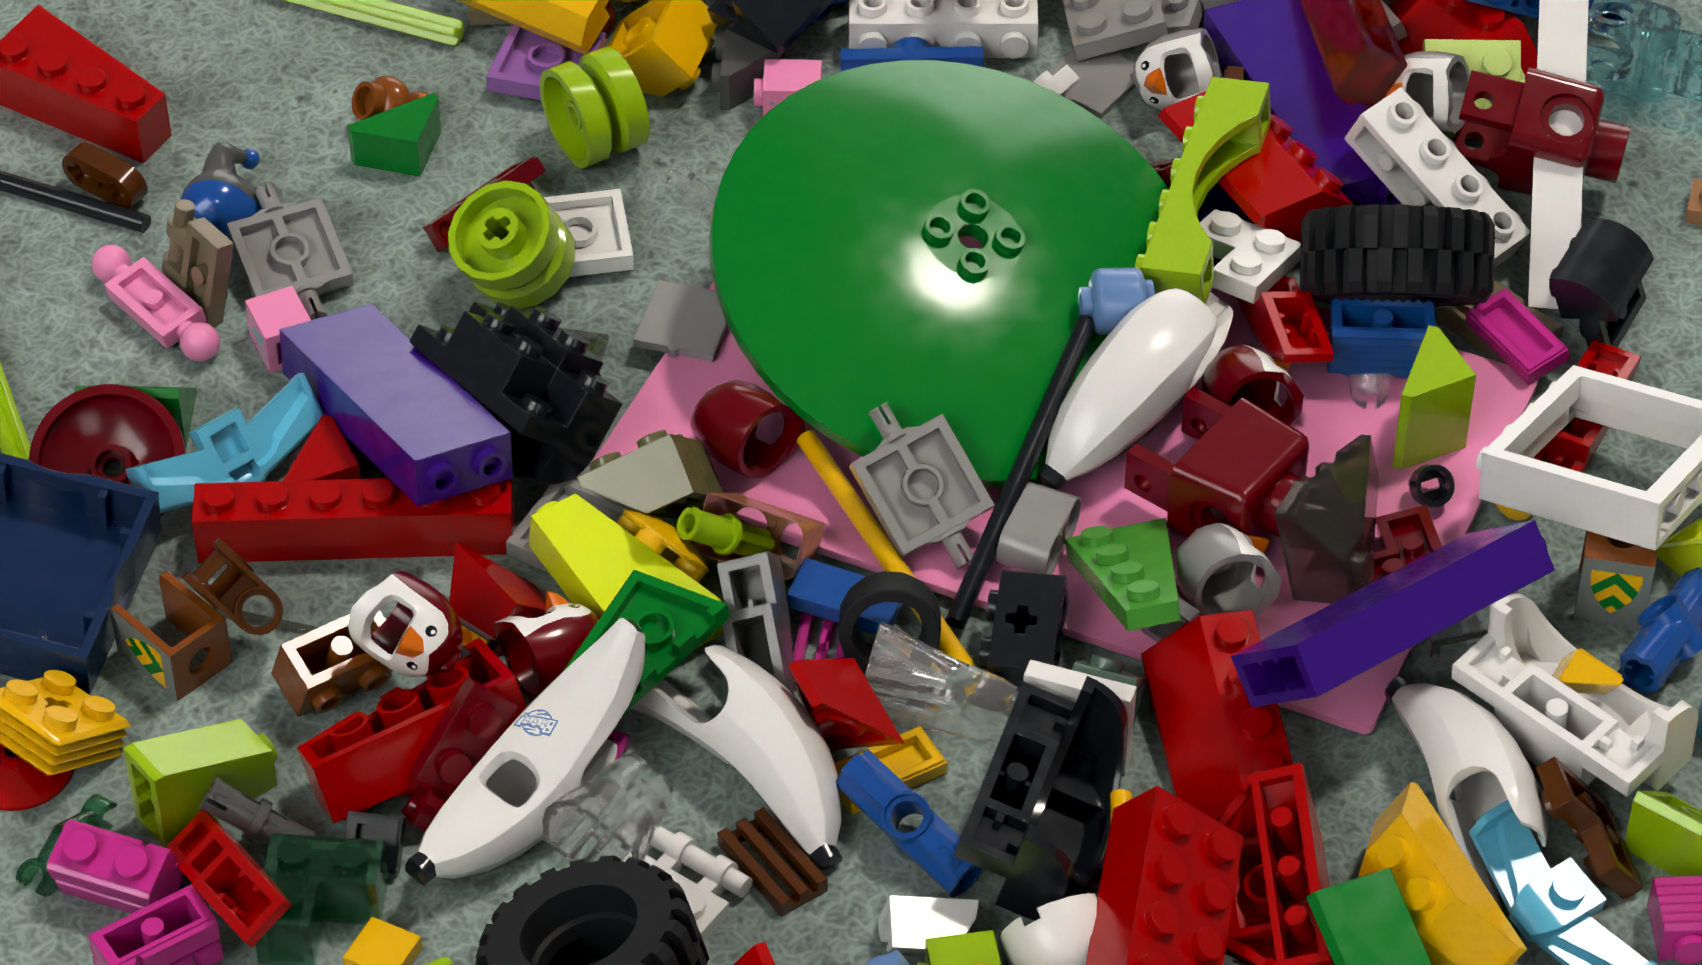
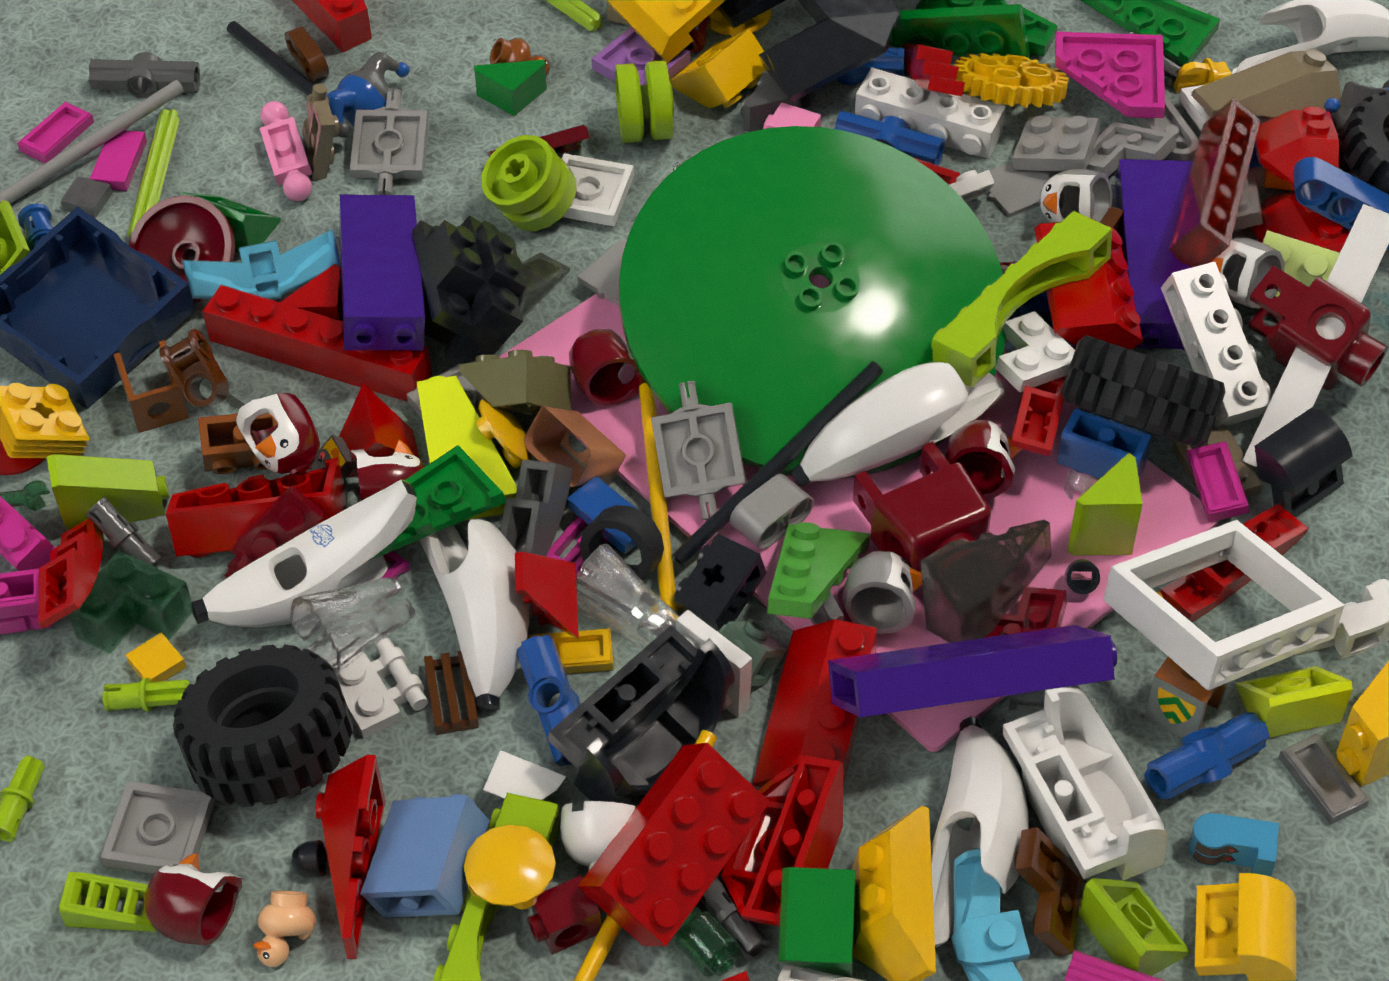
camera: 25 degrees right, 5 degrees up
(269, 314) = (350, 181): bright pink brick -> none
(380, 827) = (198, 575): black tile -> none
(723, 533) = (547, 439): lime axle -> none
(1113, 295) = (903, 352): medium blue head -> none
(1586, 673) = (1106, 767): yellow slope -> none

